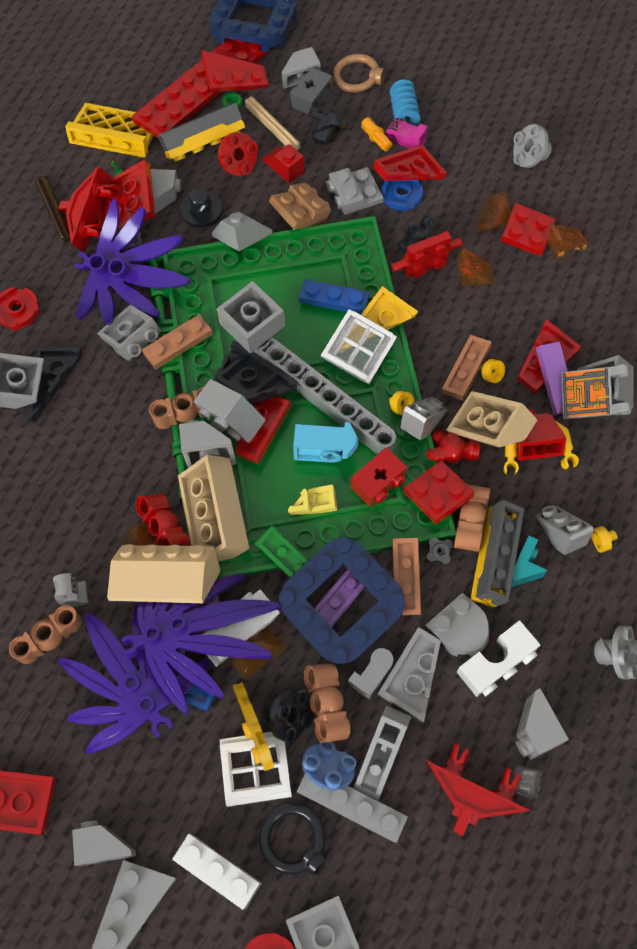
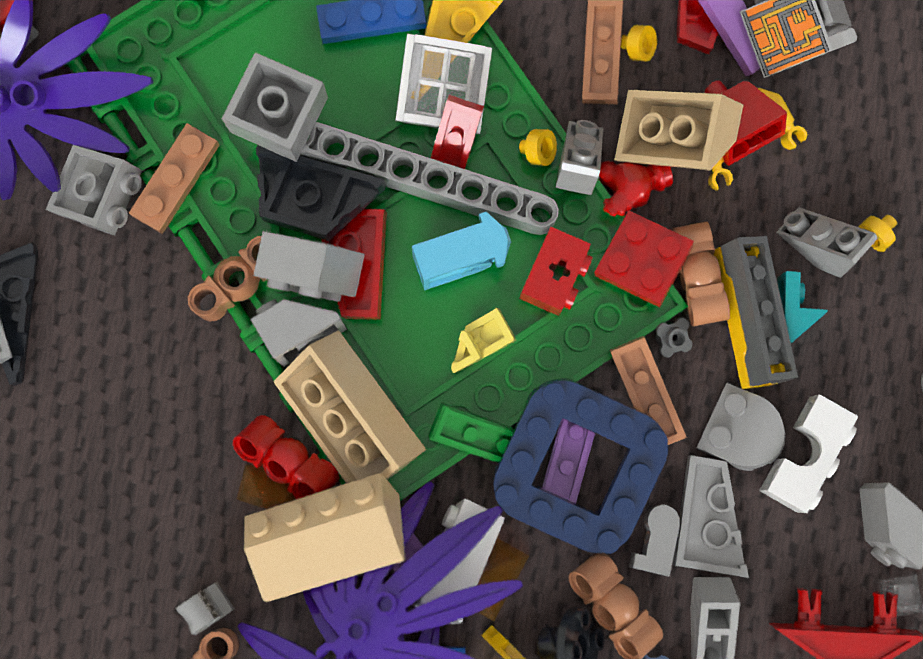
camera: 30 degrees left, 15 degrees up
(354, 373) = (457, 131): none -> plate

